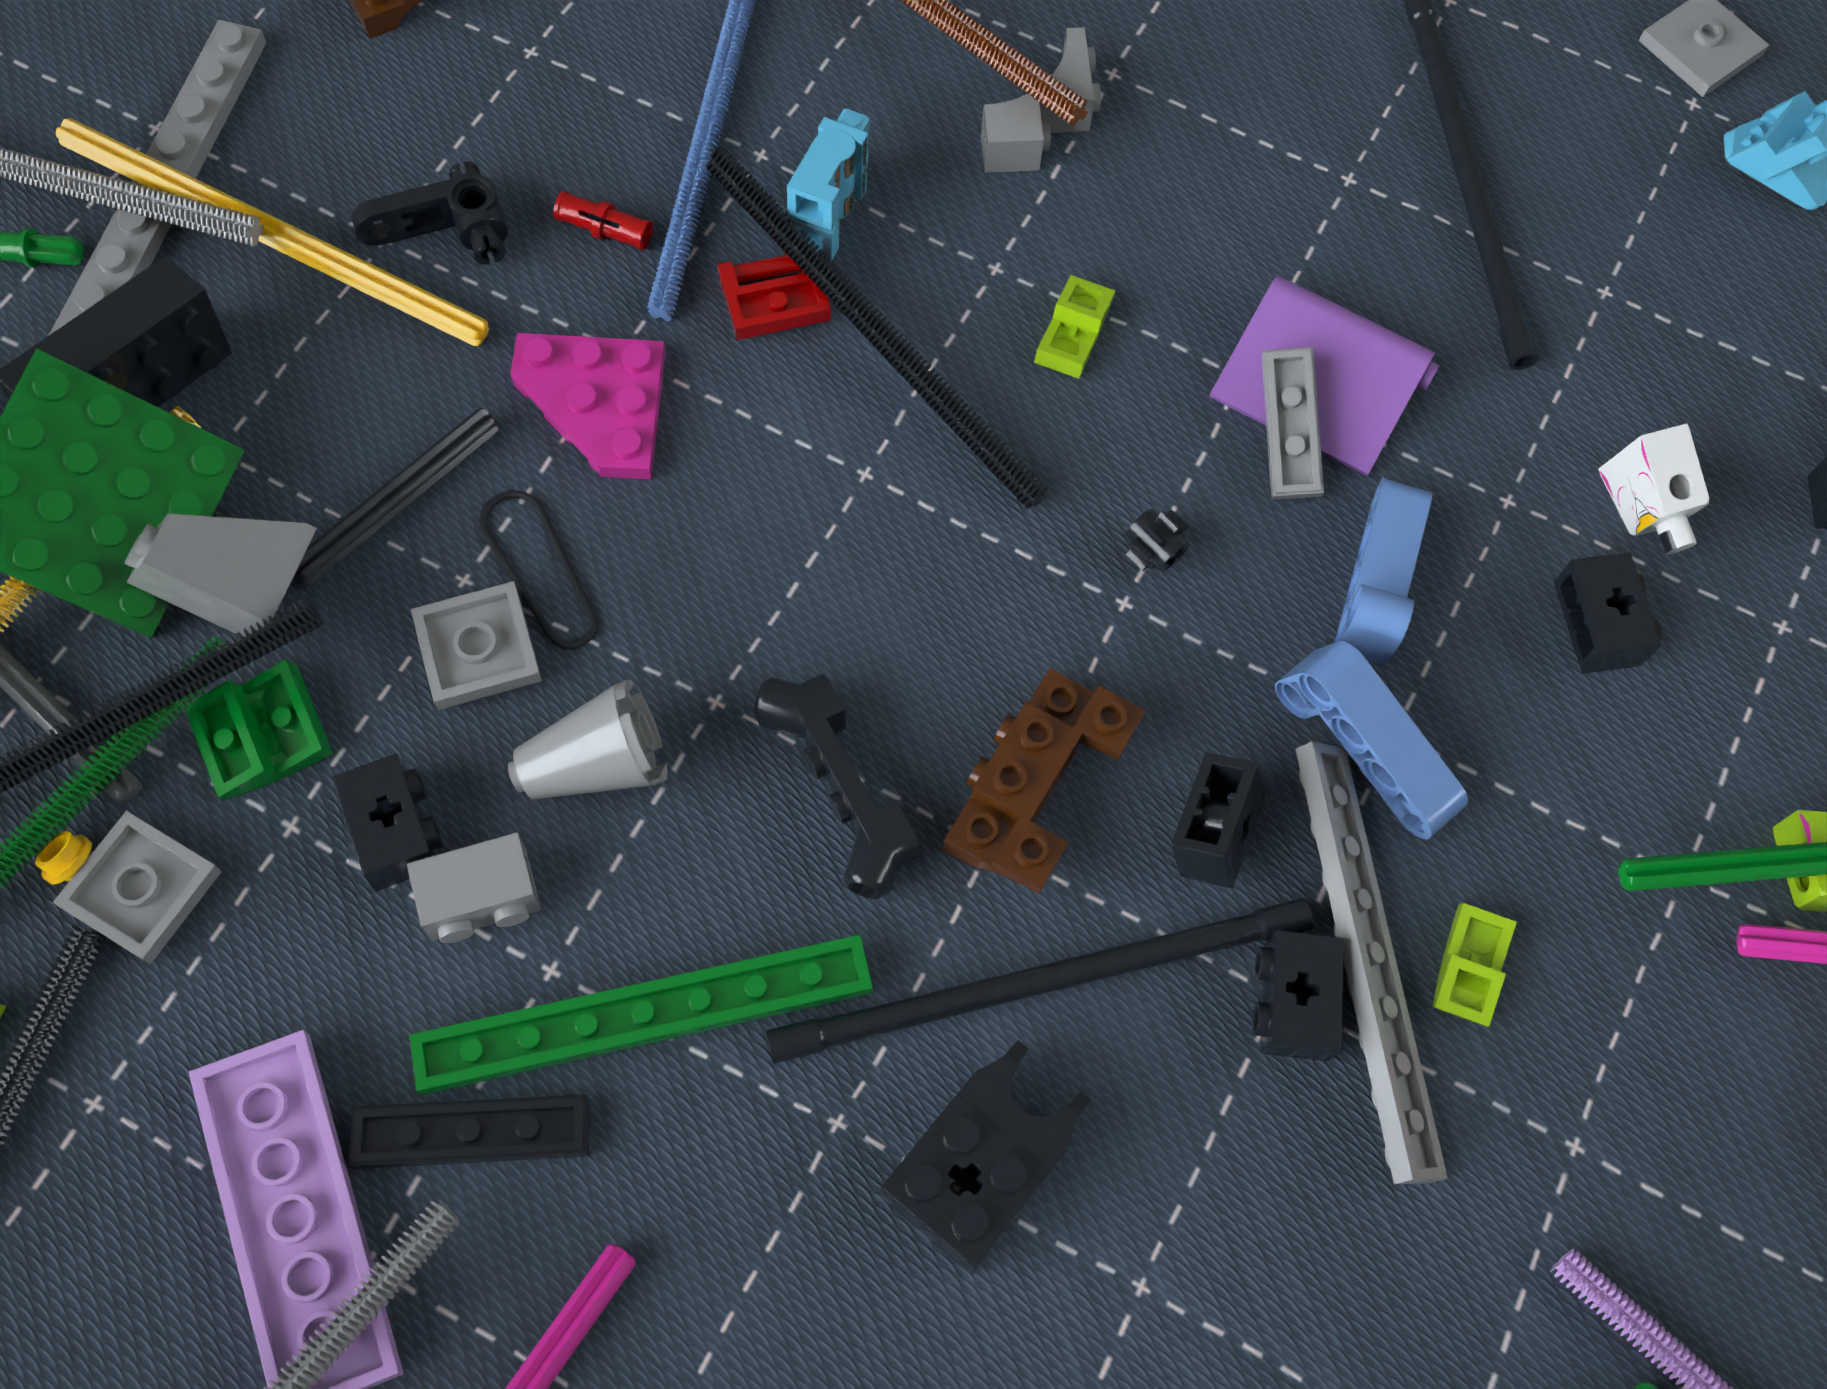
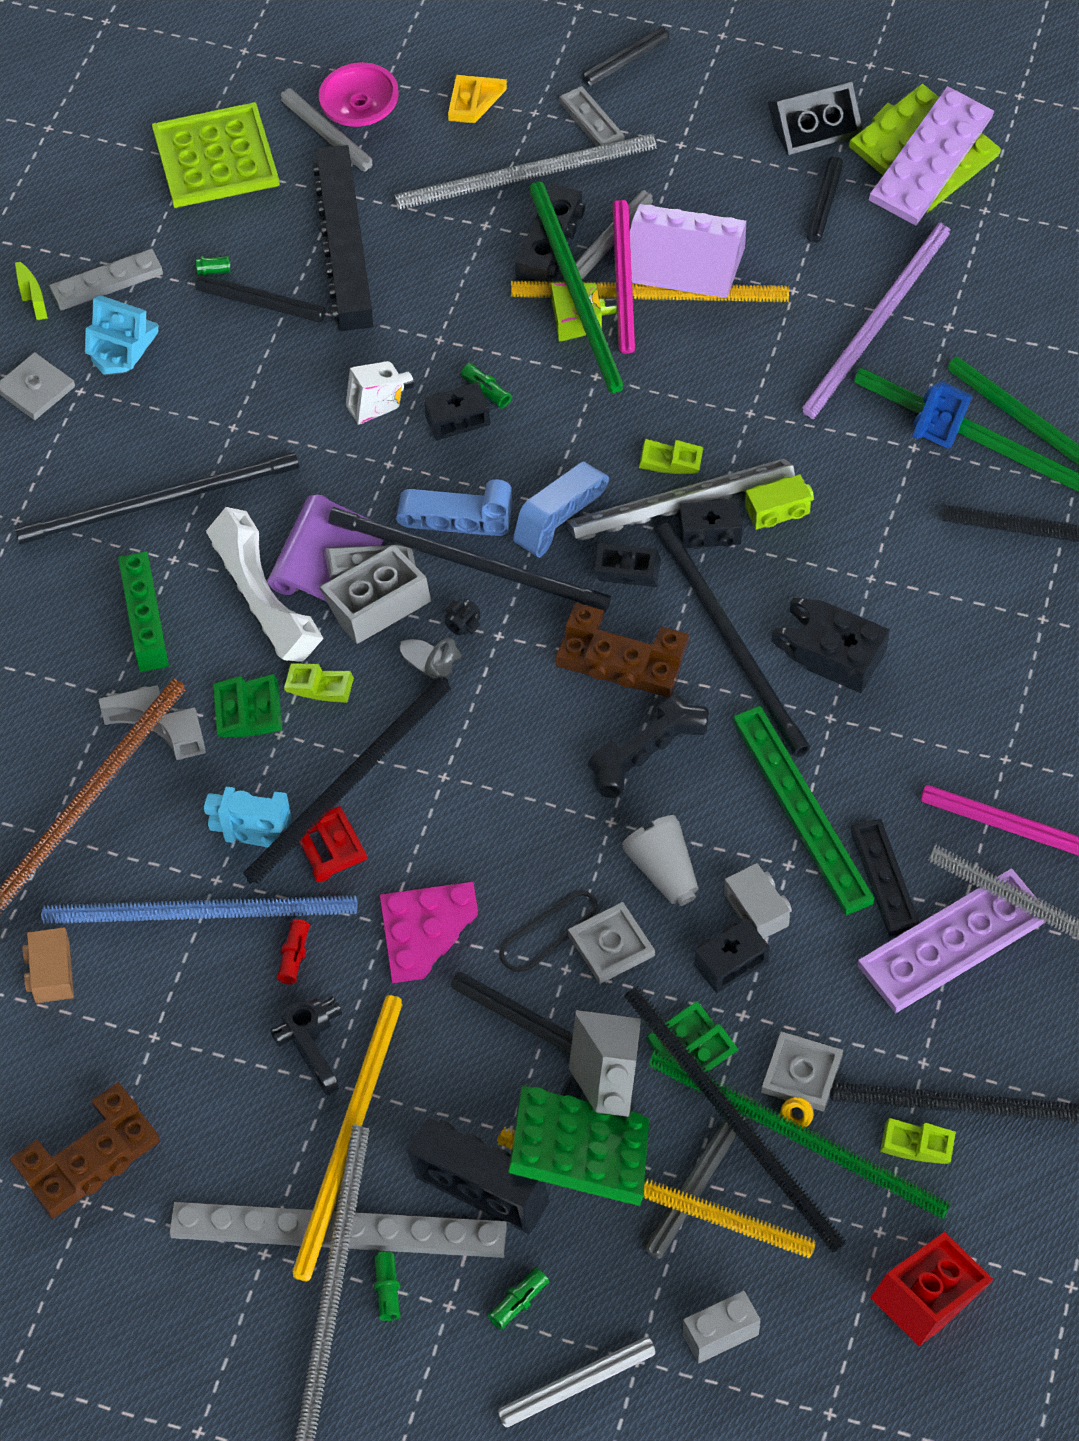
camera: 95 degrees left, 10 degrees down
(1050, 229) = (247, 707): none -> green slope
(1087, 479) = (430, 659): none -> dark grey piece
(1174, 744) = (356, 523): none -> black piece
(1220, 415) = (376, 593): none -> light grey slope
(1244, 111) = (143, 612): none -> green brick
(1330, 248) = (238, 545): none -> white arch
(1332, 1135) = (778, 501): none -> lime brick
(1665, 674) = (497, 394): none -> green pin

